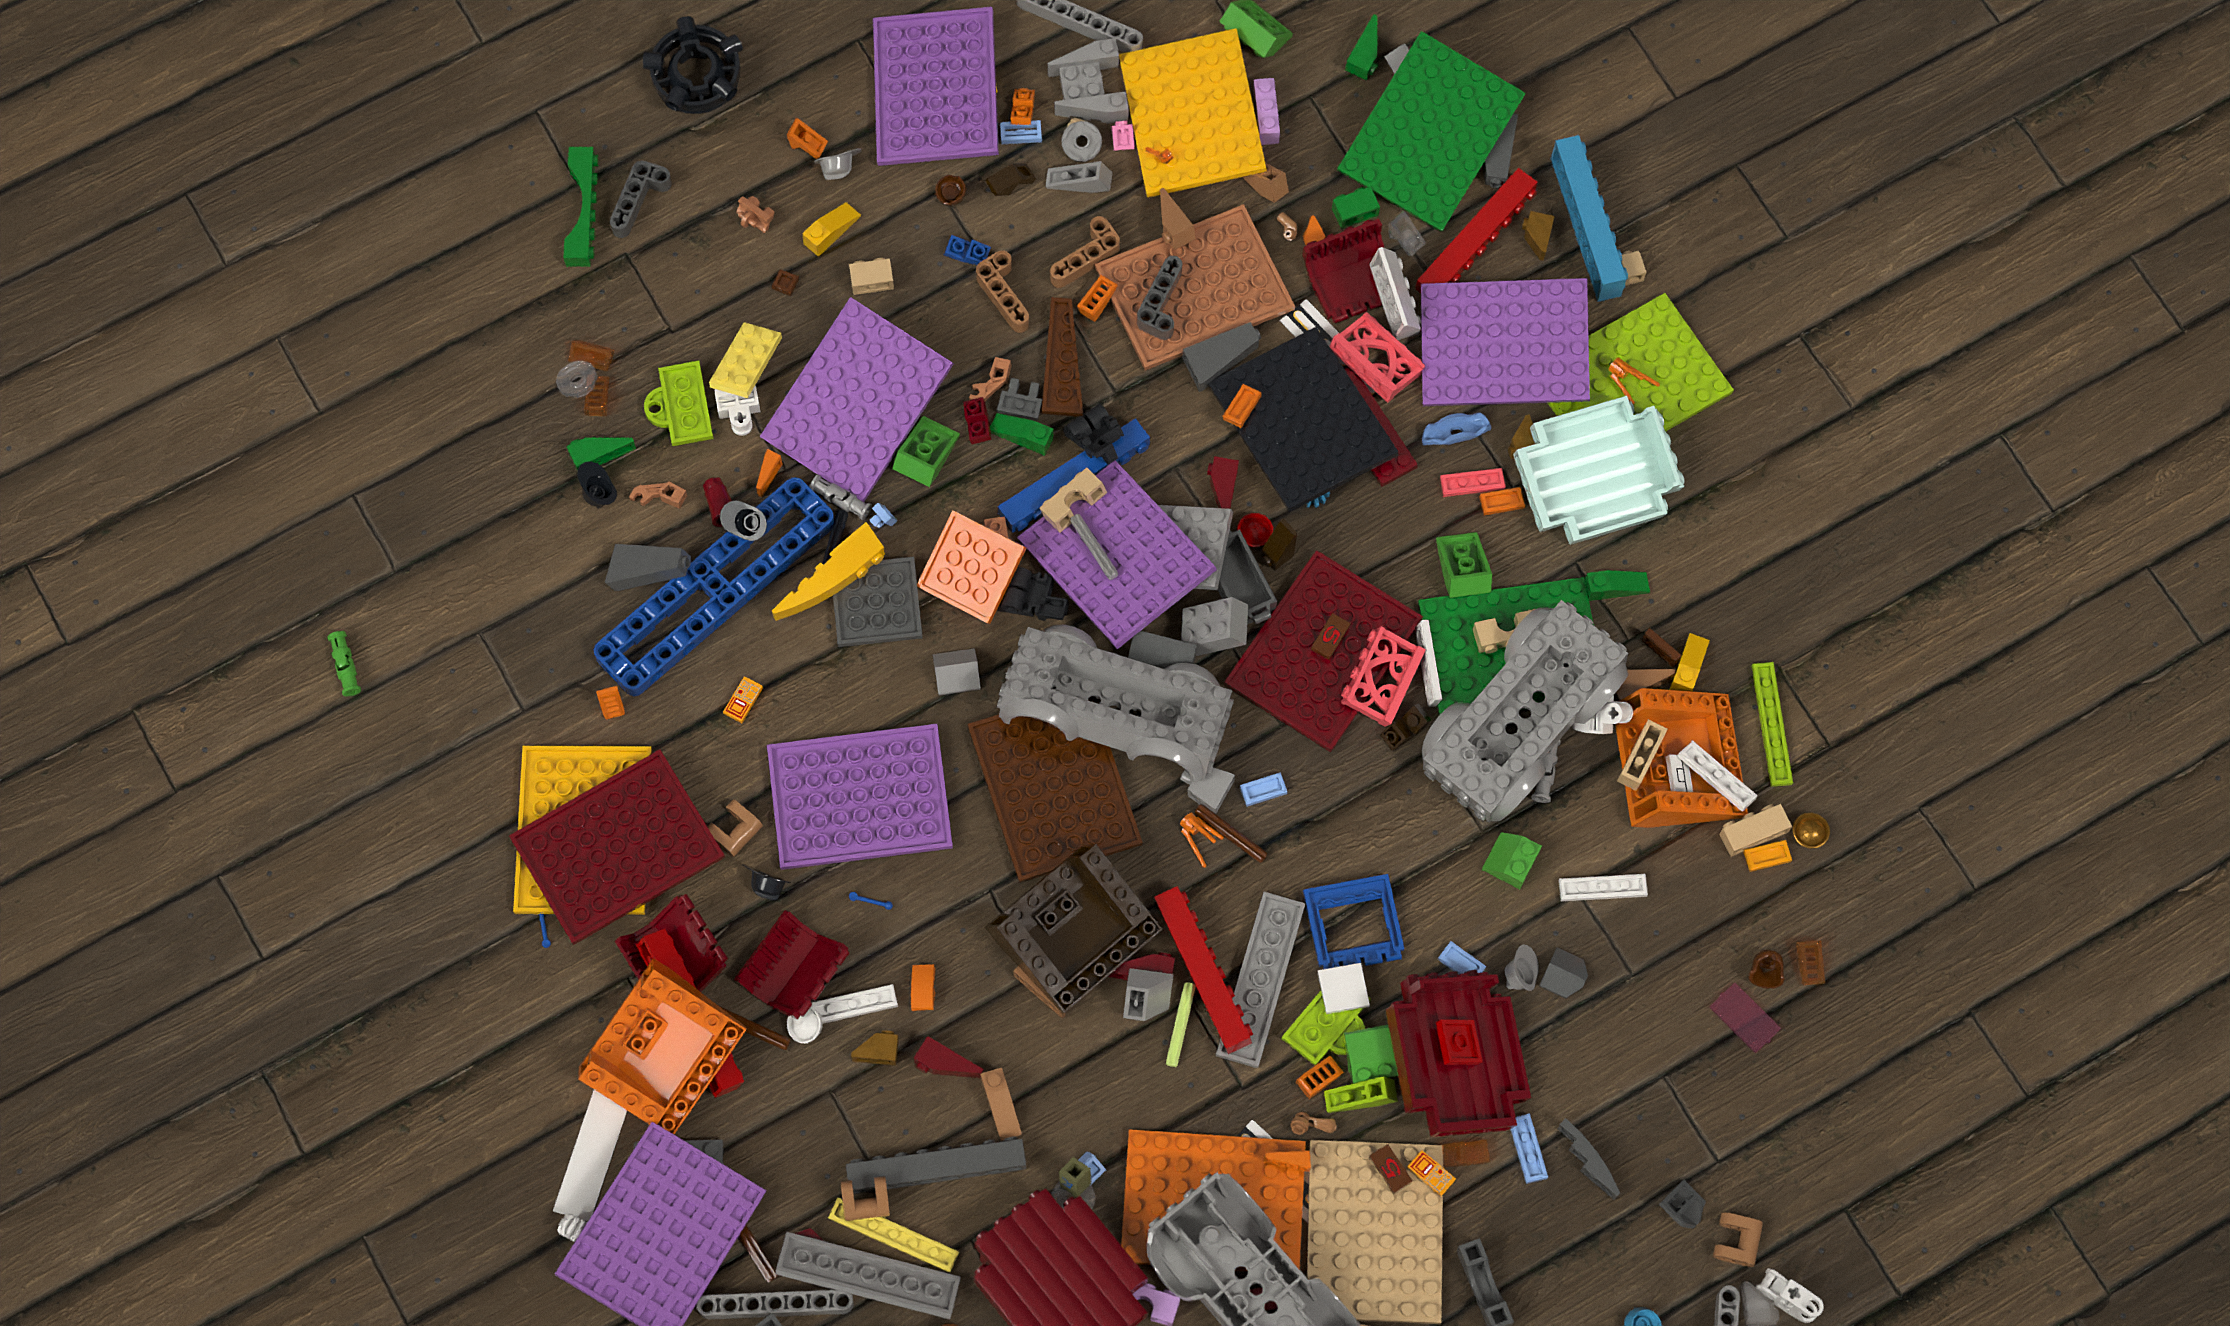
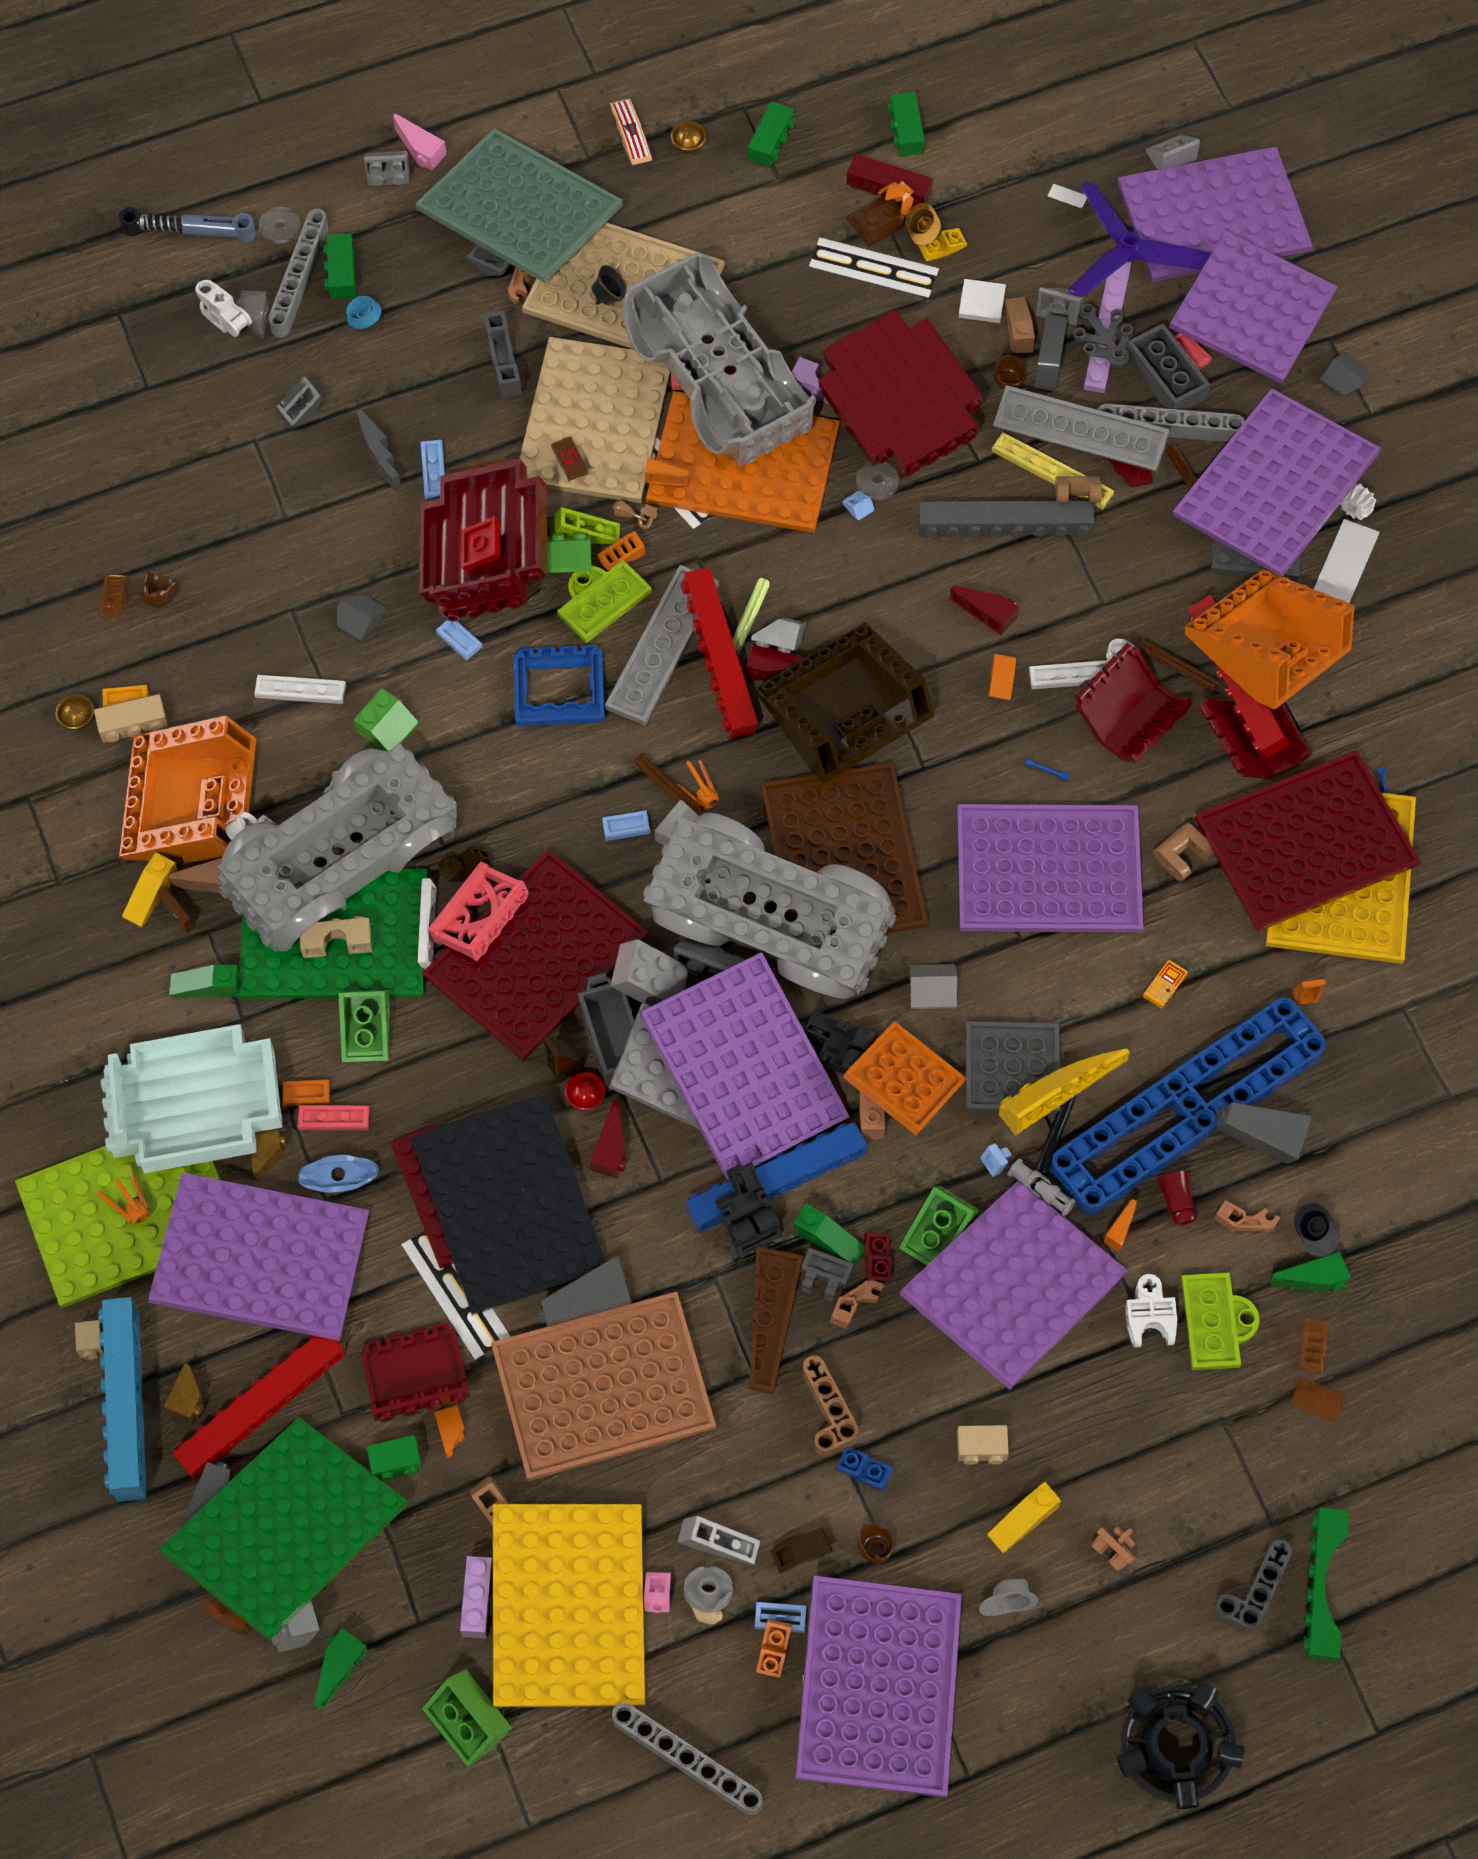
camera: 170 degrees left, 5 degrees down
(570, 372) = (1349, 1364): clear tile -> none
(743, 520) = (1151, 1152): piece -> none
(745, 360) = (1138, 1357): light yellow plate -> none
(766, 885) = (1154, 794): black piece -> none
(785, 282) = (1084, 1458): reddish brown tile -> none
(806, 138) = (1044, 1633): orange slope -> none
(878, 1049) = (1053, 625): pearl gold slope -> none
(1000, 1104) = (937, 567): medium nougat slope -> none
(1075, 1177) = (873, 482): olive brick -> none
(1081, 256) = (730, 1439): medium nougat beam -> none
(1083, 83) = (694, 1664): light grey wedge -> none
(1083, 487) = (801, 1125): tan arch -> none
(1094, 547) = (767, 1072): light grey axle -> none
(1102, 301) = (732, 1369): orange slope -> none
(1162, 294) = (642, 1367): dark grey beam -> none
(1164, 156) = (612, 1539): clear orange hand -> none
(1176, 226) = (614, 1454): medium nougat slope -> none
(1242, 405) = (575, 1222): orange tile -> none
(1290, 226) = (476, 1448): medium nougat arm -> none
(1330, 636) = (525, 960): reddish brown tile -> none
(1343, 988) = (582, 619): white tile -> none
(1381, 339) = (440, 1272): coral fence -> none
(1394, 294) = (372, 1327): white slope -> none
(1406, 233) = (342, 1413): clear slope -> none
(1431, 1173) = (531, 450): light orange tile -> none
(1523, 970) = (402, 616): light grey piece -> none
(1642, 755) = (228, 786): tan brick -> none
(1678, 774) = (193, 778): white tile -> none
(1717, 776) = (155, 766): white tile -> none
(1745, 1018) = (192, 556): clear pink piece -> none
(1748, 1241) = (243, 372): medium nougat connector -> none
(1772, 724) = (82, 824): lime tile -> none

